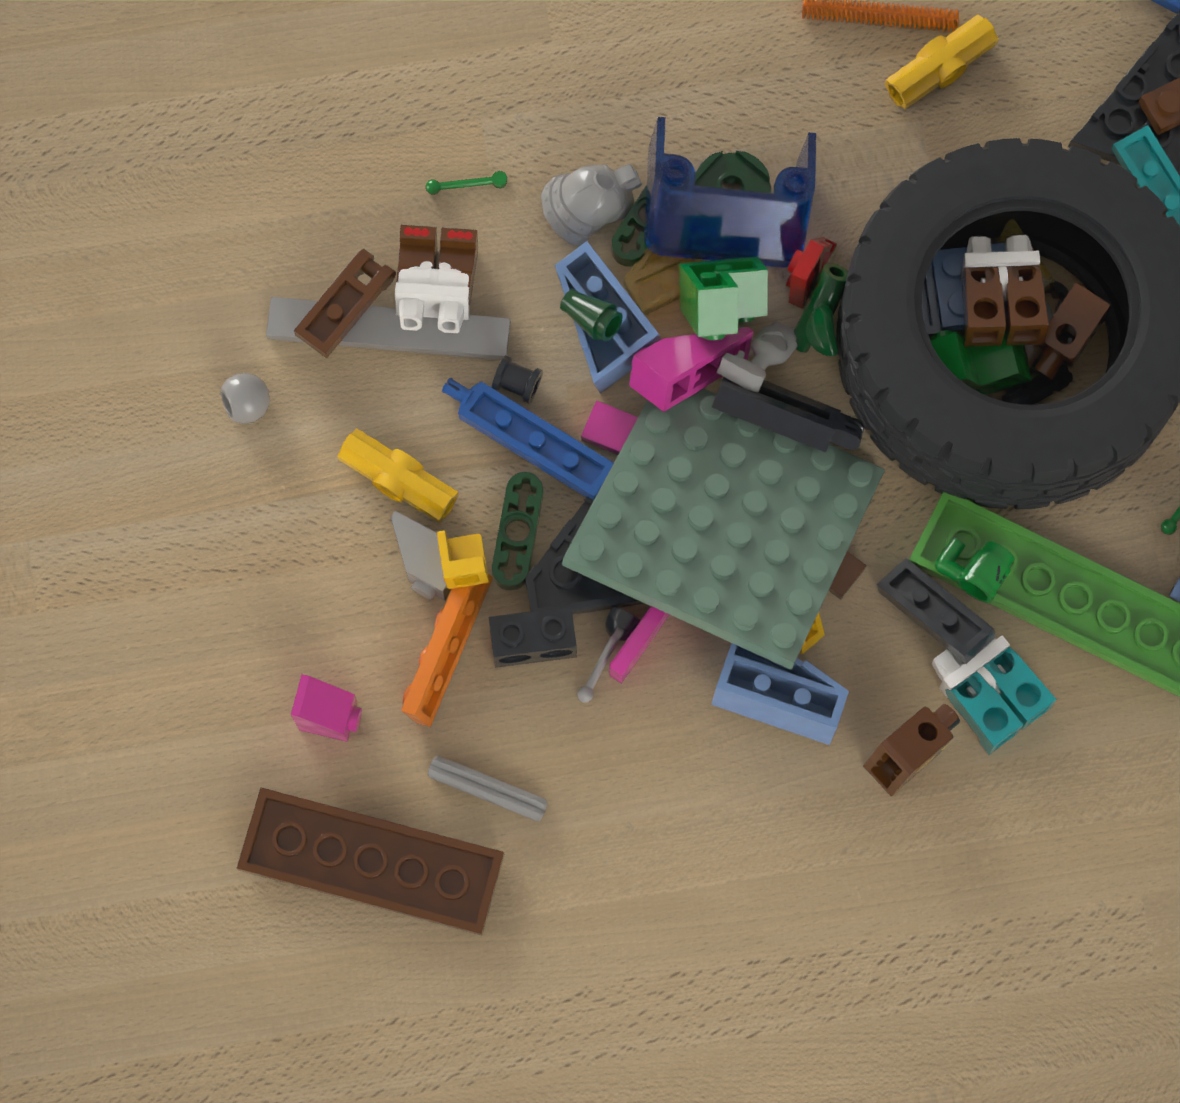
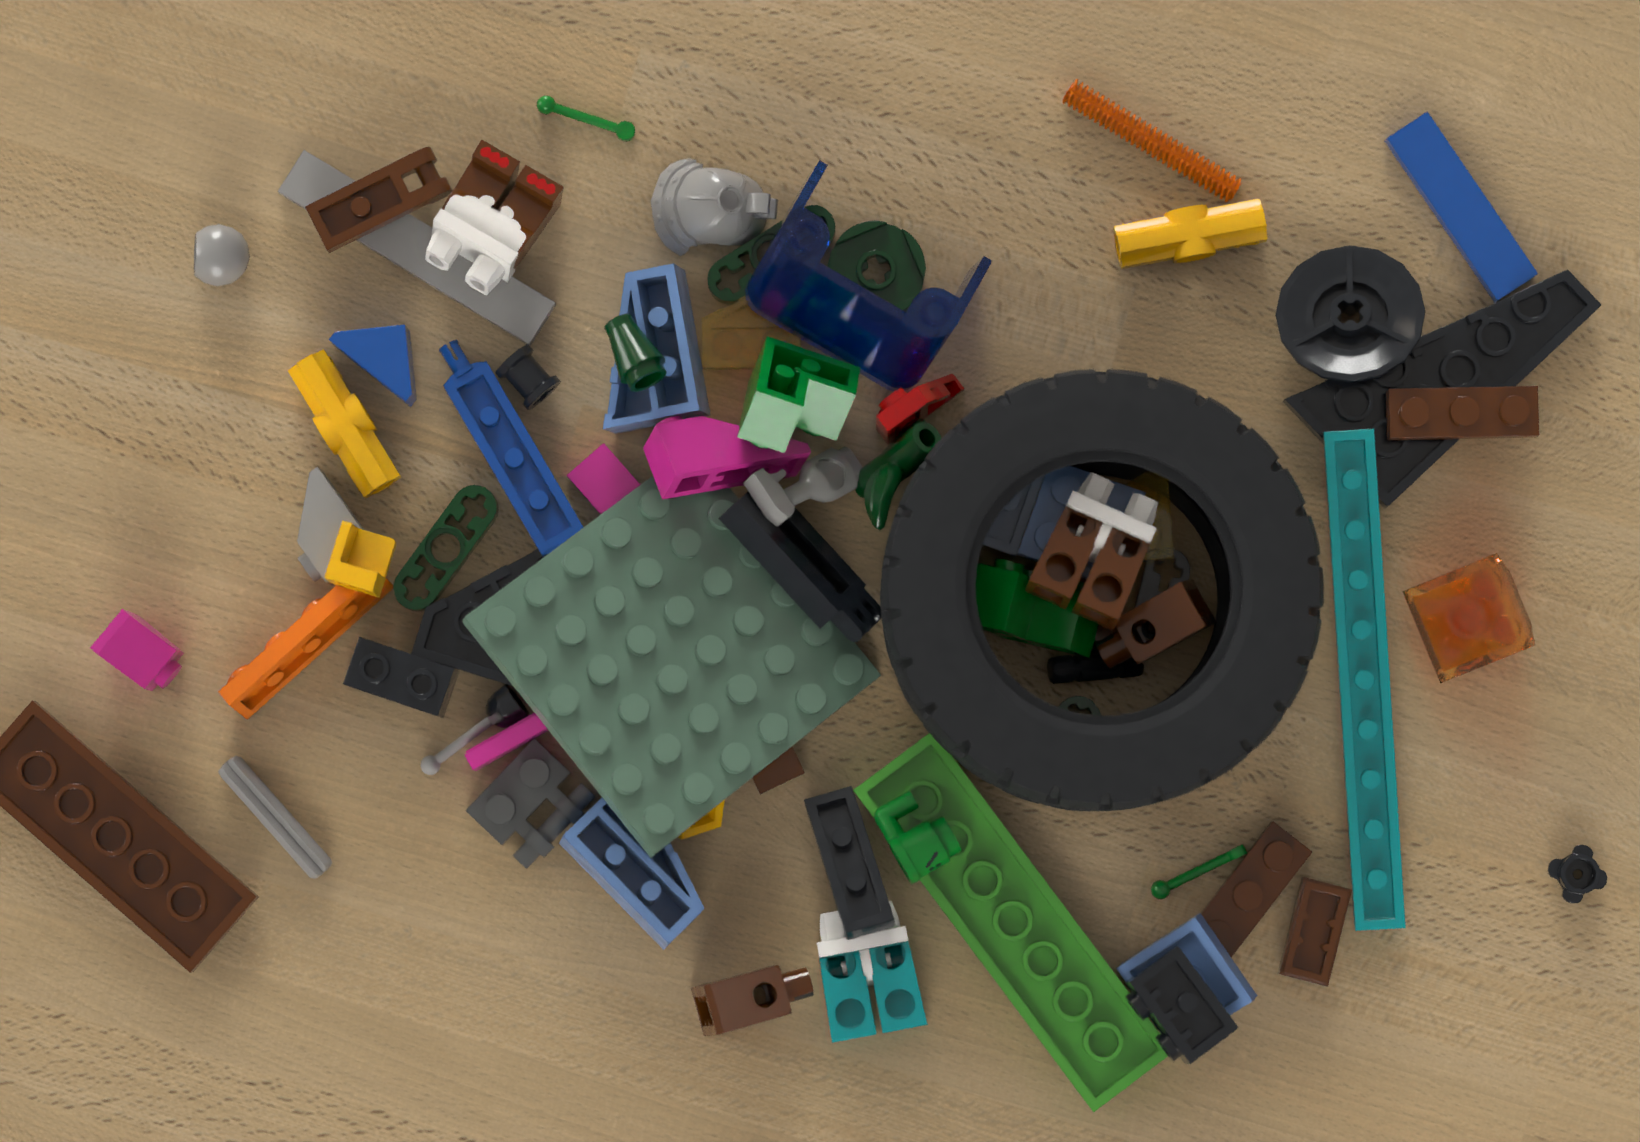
camera: 25 degrees right, 10 degrees up
(401, 414) = (382, 354): none -> blue slope
(661, 684) = (519, 793): none -> dark grey plate
(1064, 47) = (1350, 282): none -> black piece

